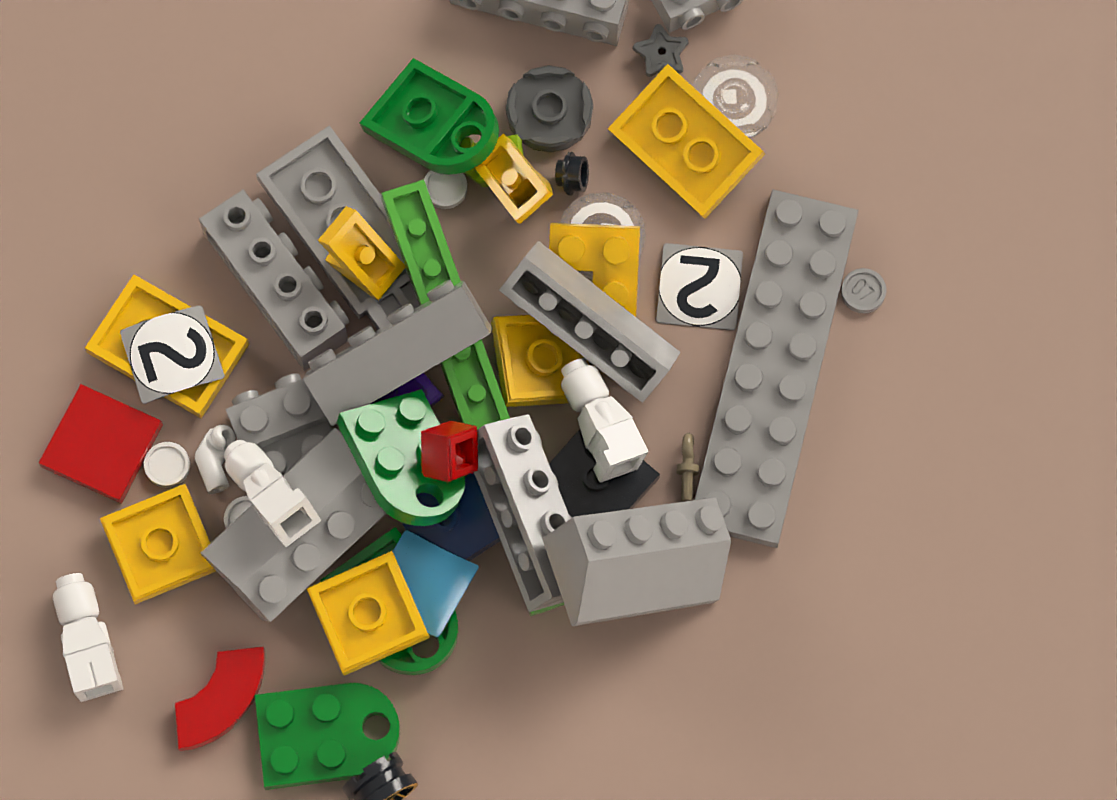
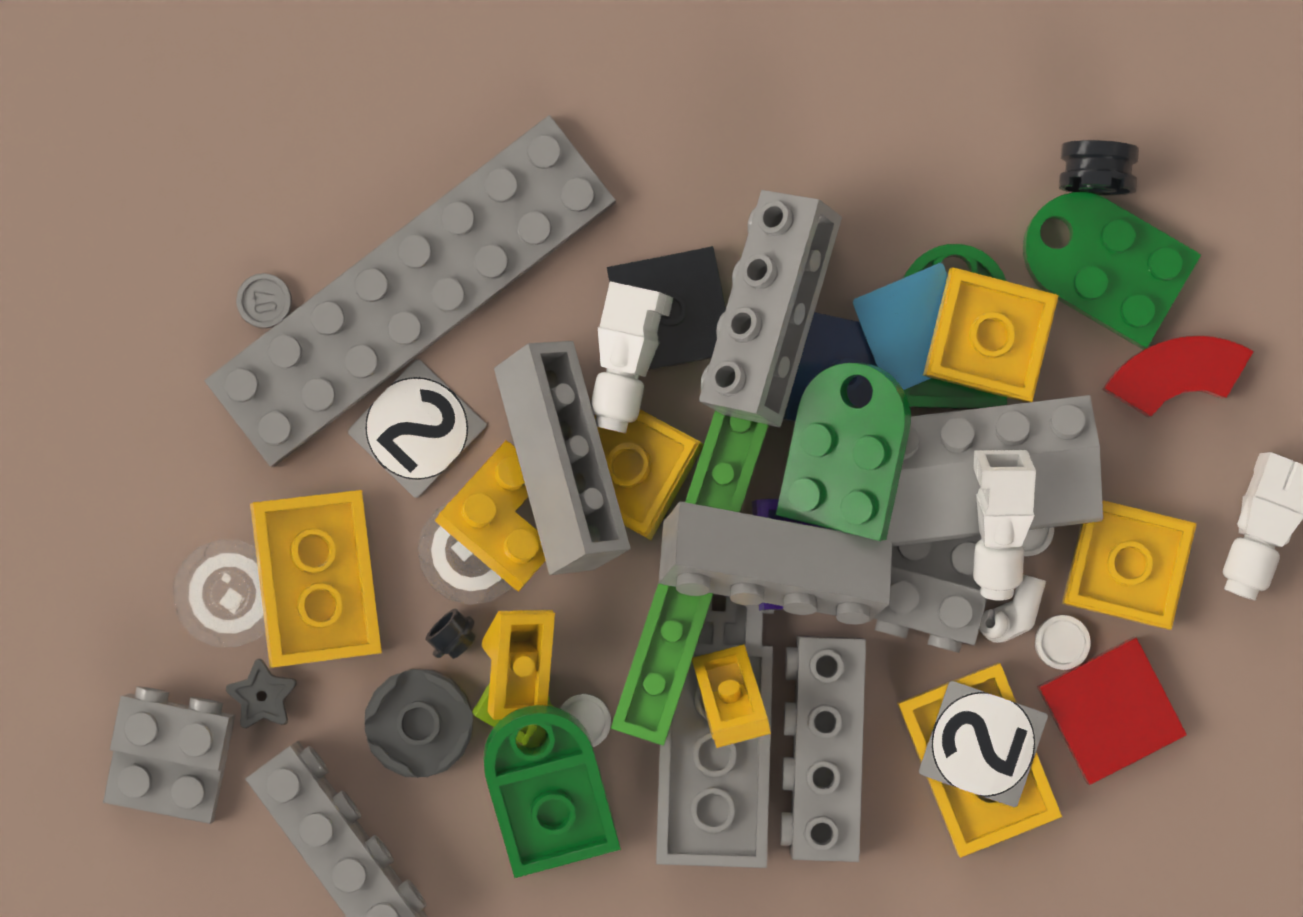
camera: 140 degrees left, 15 degrees up
(449, 451) = (805, 418): red slope -> none
(639, 560) = (704, 180): light grey slope -> none
(687, 468) = (574, 254): dark tan hand -> none

